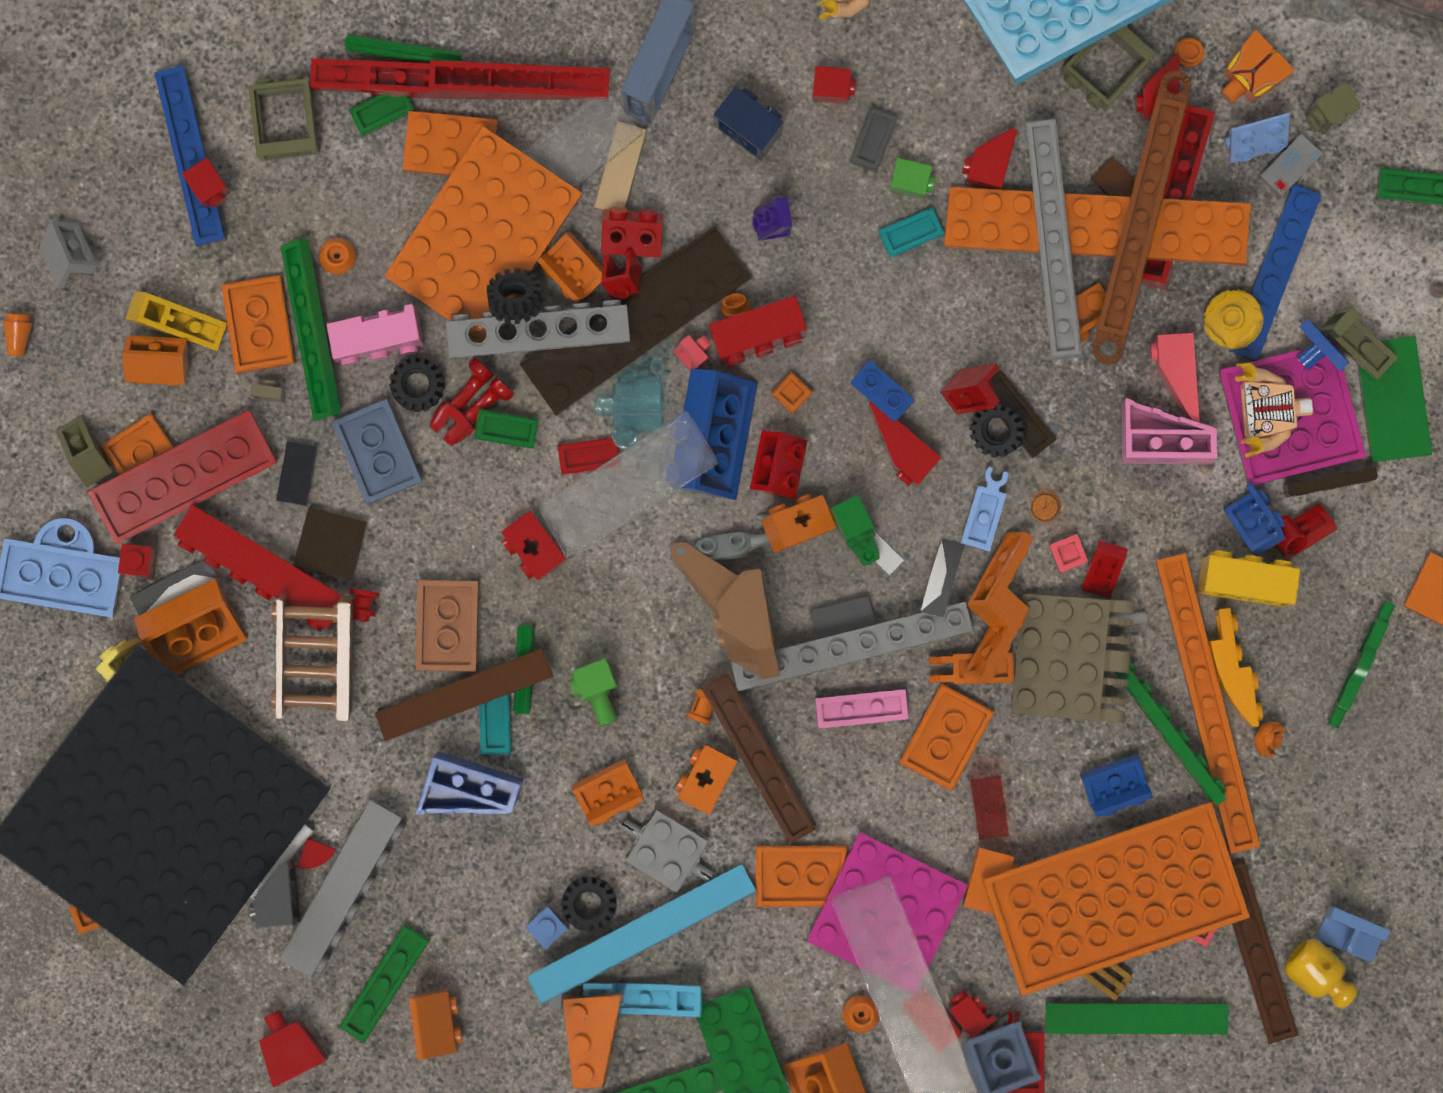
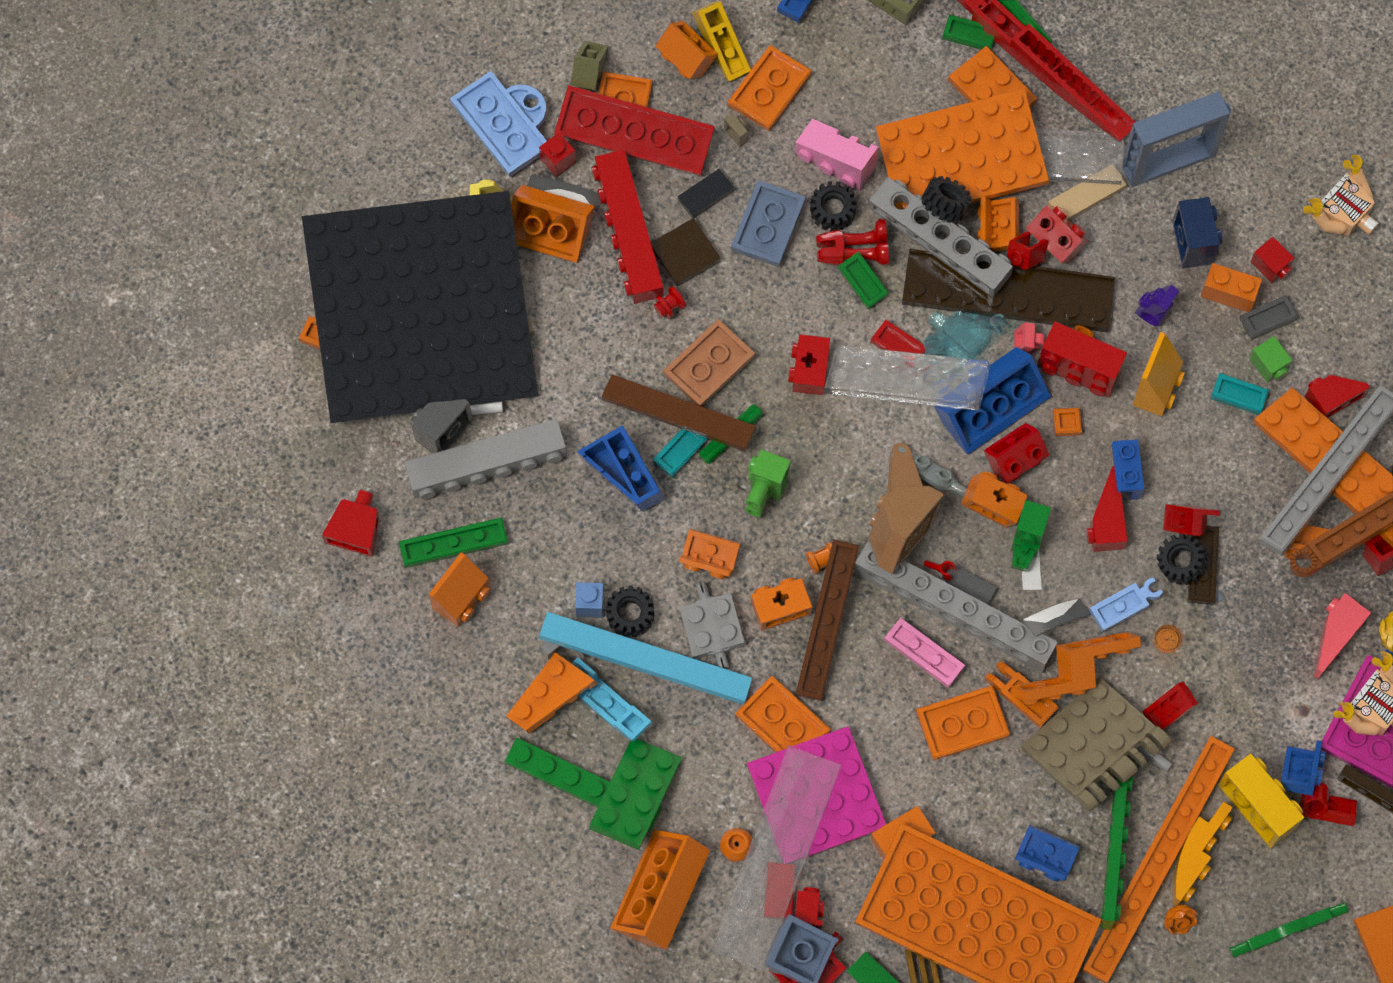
camera: 45 degrees right, 15 degrees down
(310, 329) = (798, 117): green plate -> none
(315, 854) = (488, 425): red tile -> none
(340, 643) = (615, 327): medium nougat fence -> none
(344, 262) = (858, 98): orange plate -> none
(809, 623) = (942, 568): none -> red hand
(820, 144) = (1231, 287): none -> orange brick
(837, 287) = (1160, 377): none -> light orange slope
(988, 808) = (948, 787): clear red panel -> none
(1068, 553) = (1155, 679): coral plate -> none
(1163, 438) = (1288, 663): bright pink wedge -> none

